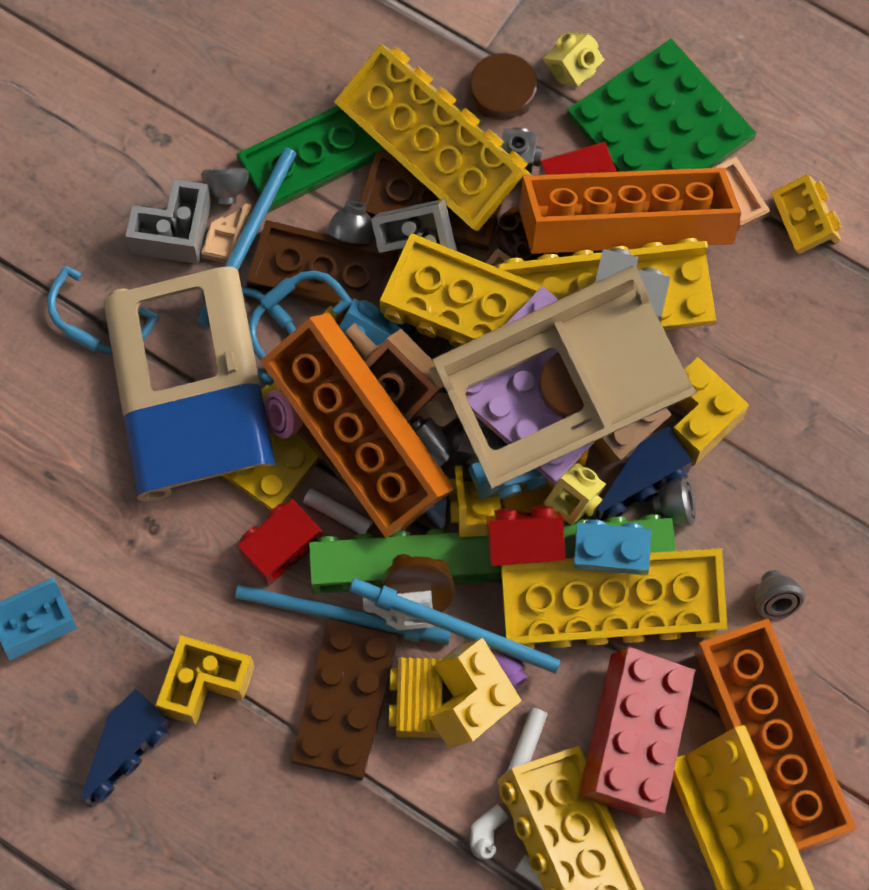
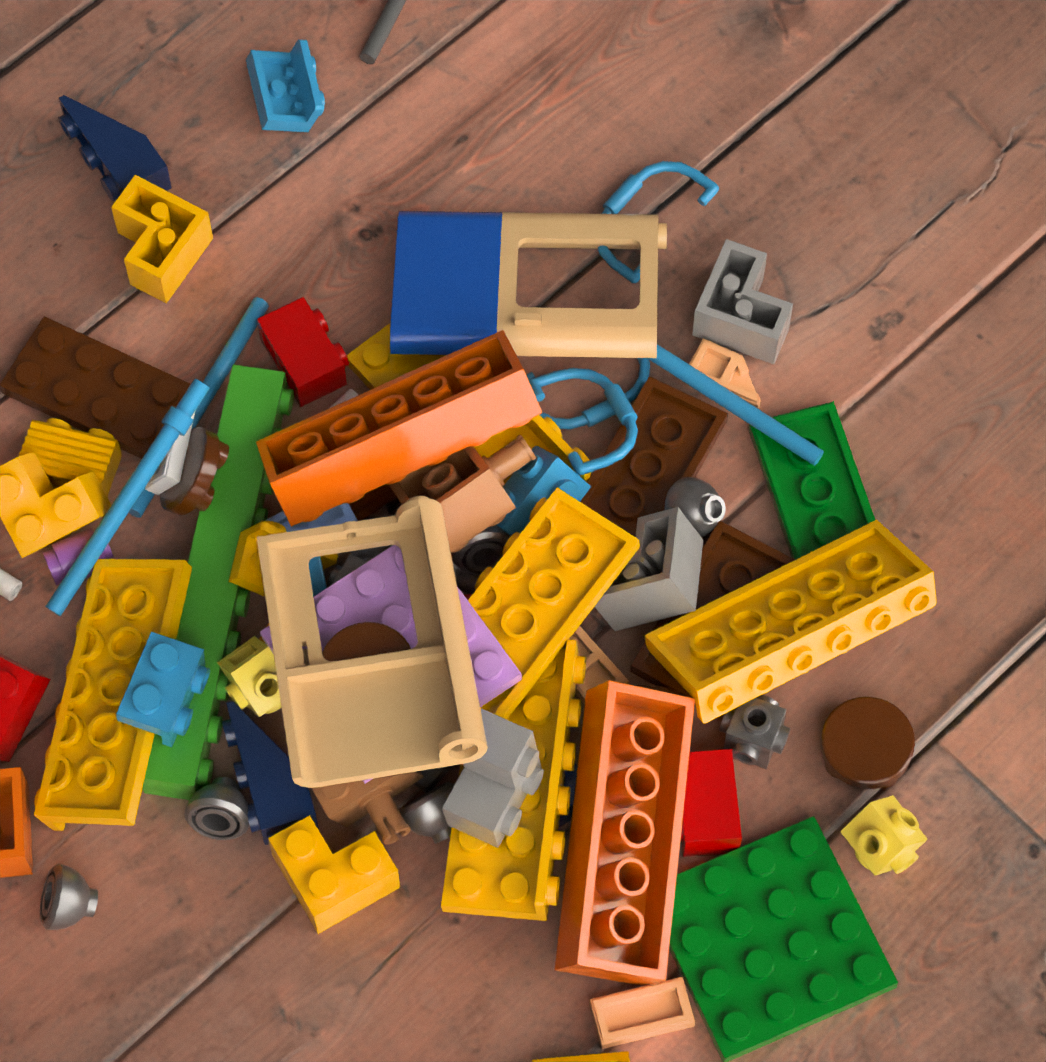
camera: 105 degrees right, 5 degrees down
(225, 183) = (793, 377): flat silver brick -> none
(525, 536) = (206, 591): red brick -> none

